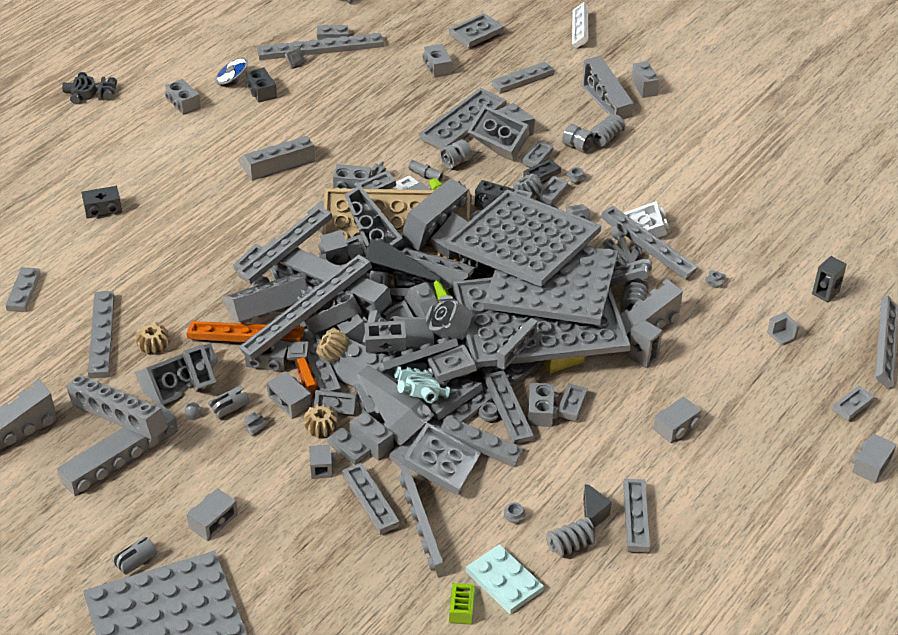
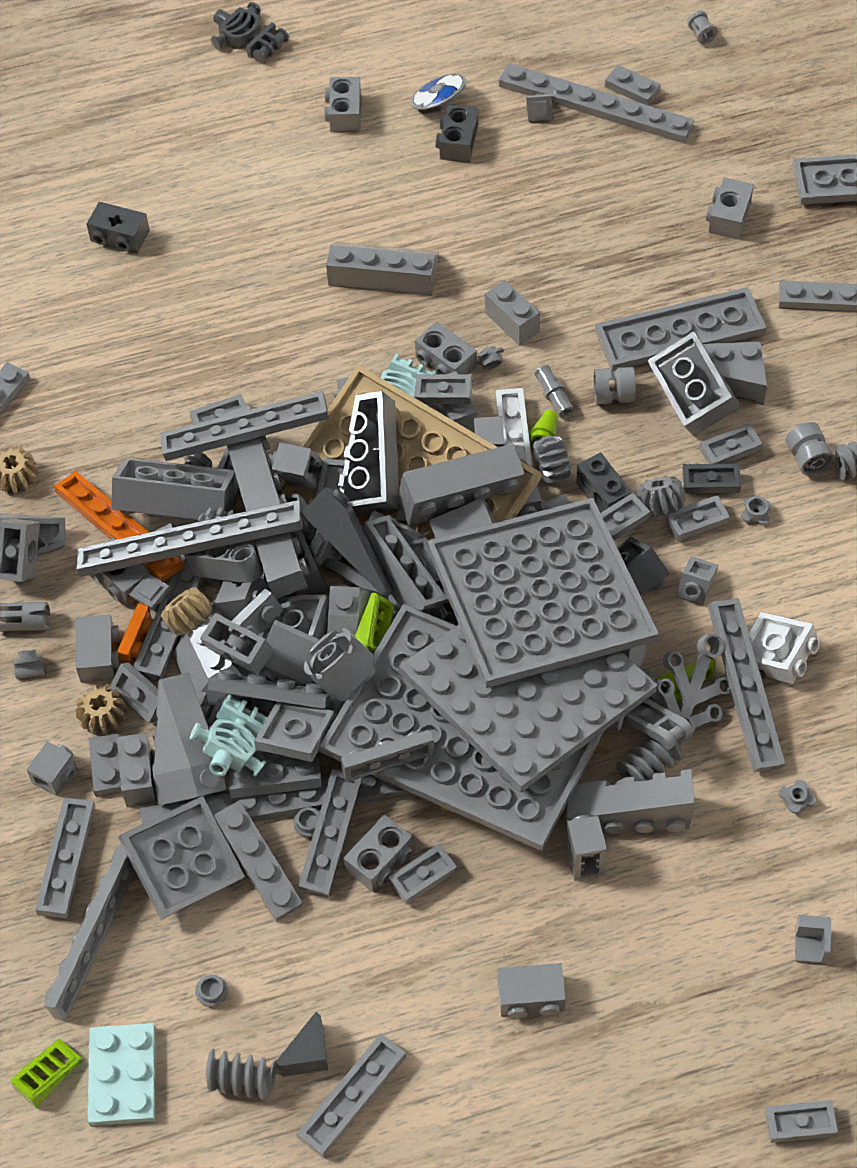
camera: 40 degrees right, 15 degrees up
(370, 146) = (512, 312): none -> light grey brick

